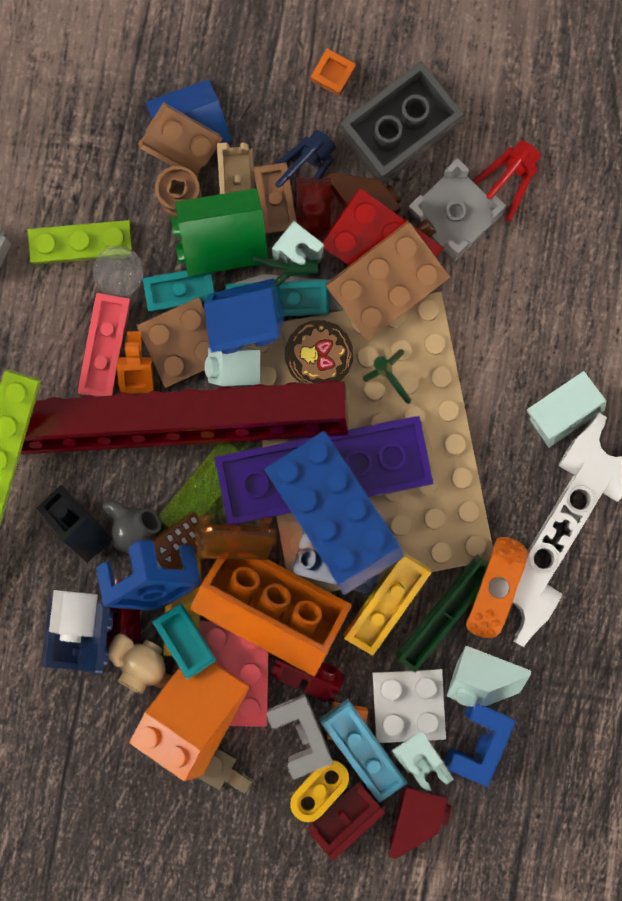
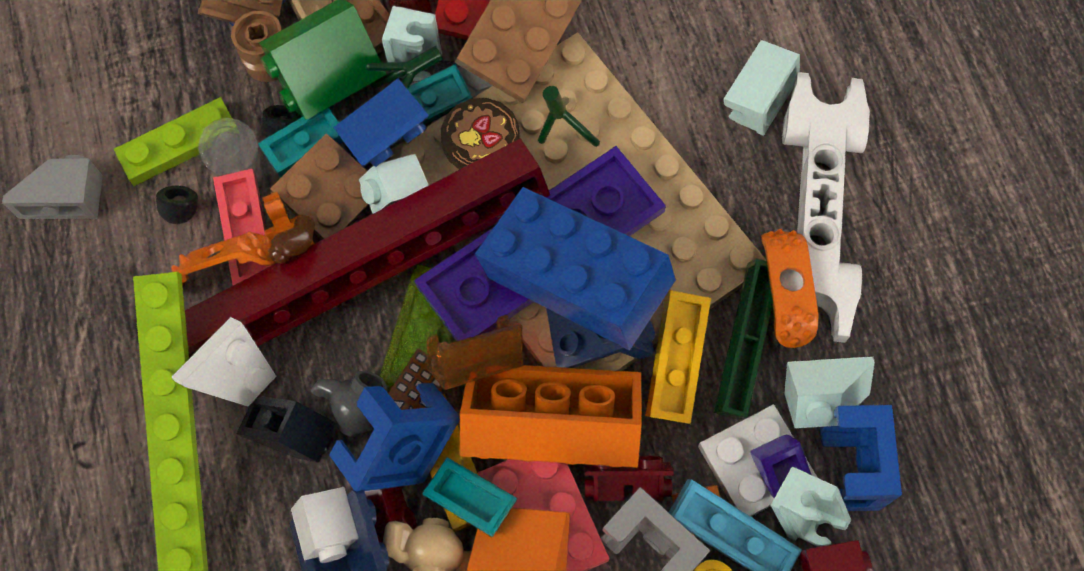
camera: 25 degrees left, 15 degrees down
(48, 464) = (227, 366): none -> white wing
(58, 305) = (176, 210): none -> black piece
(94, 369) = (243, 248): none -> orange piece
(136, 386) = (292, 241): none -> reddish brown arm
(160, 265) = (271, 122): none -> black piece
(422, 715) = (777, 459): none -> dark purple slope

